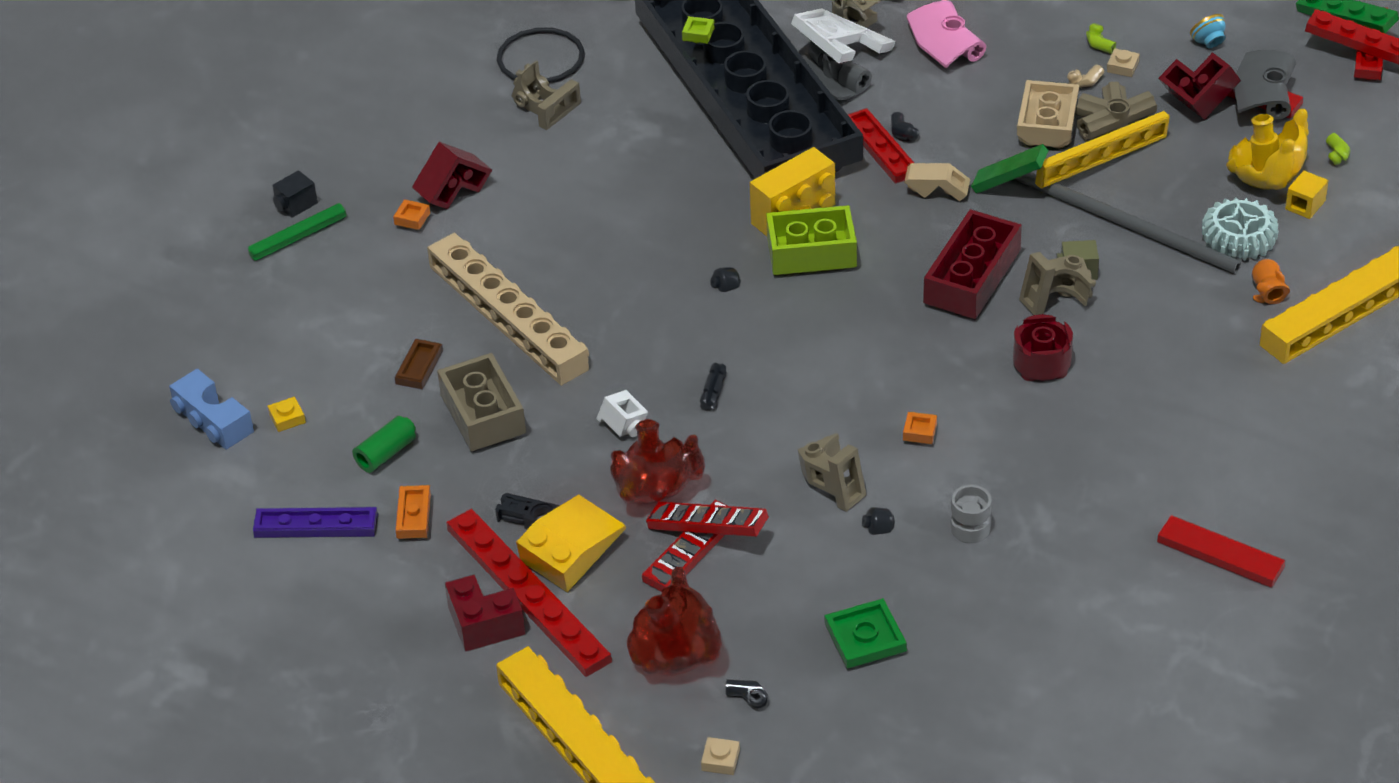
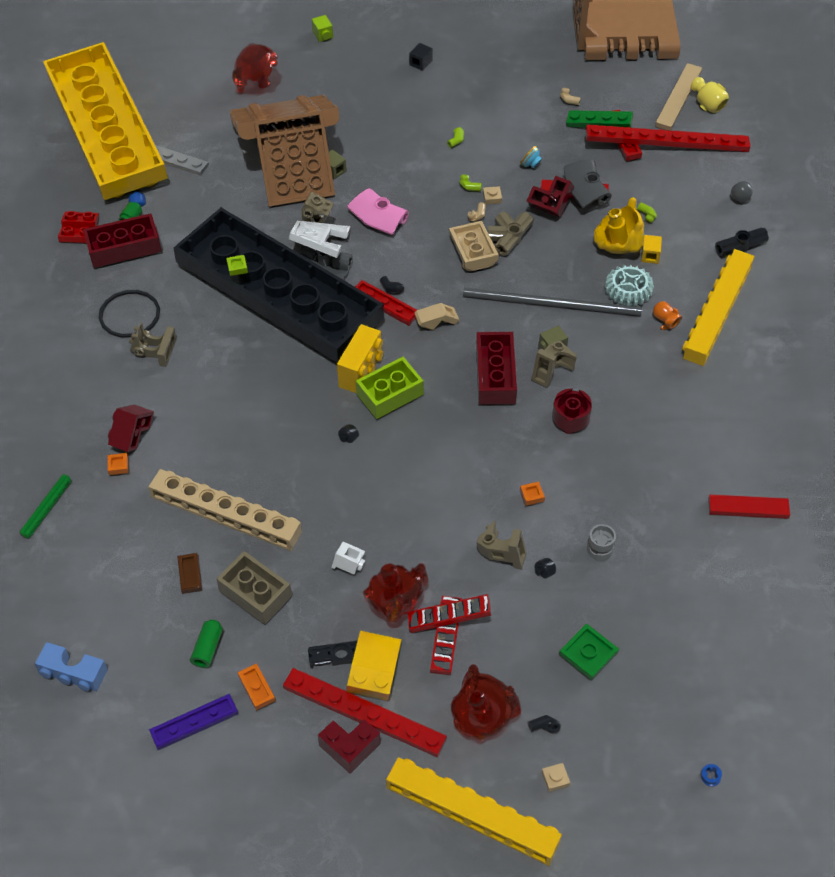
camera: 30 degrees left, 10 degrees up
(286, 414) = (123, 647): yellow plate -> none
(294, 194) = (28, 478): black brick -> none
(713, 386) = (389, 514): black axle -> none
(1009, 168) = (479, 294): green tile -> none
(1102, 149) = (521, 261): yellow tile -> none

